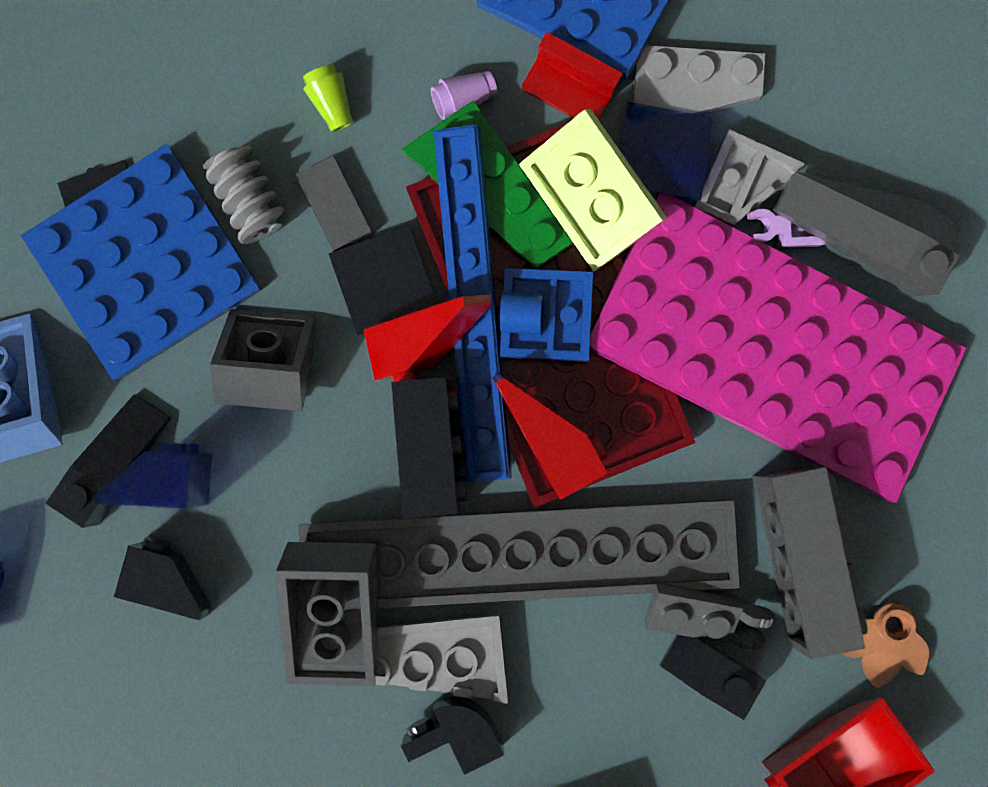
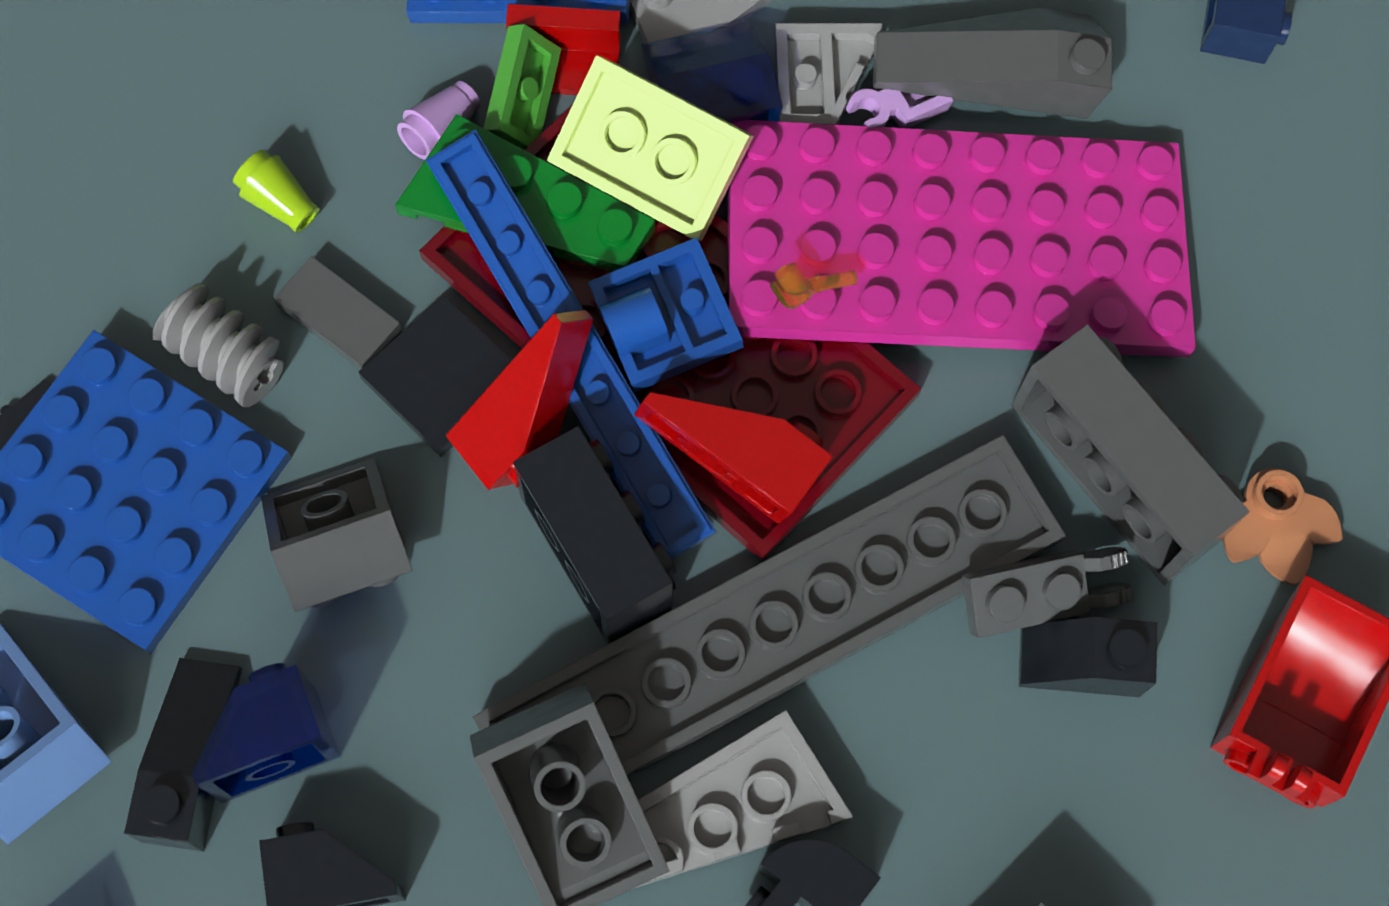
camera: 30 degrees left, 15 degrees down
(529, 98) = (522, 86): none -> bright green plate
(640, 341) = (795, 289): none -> hand

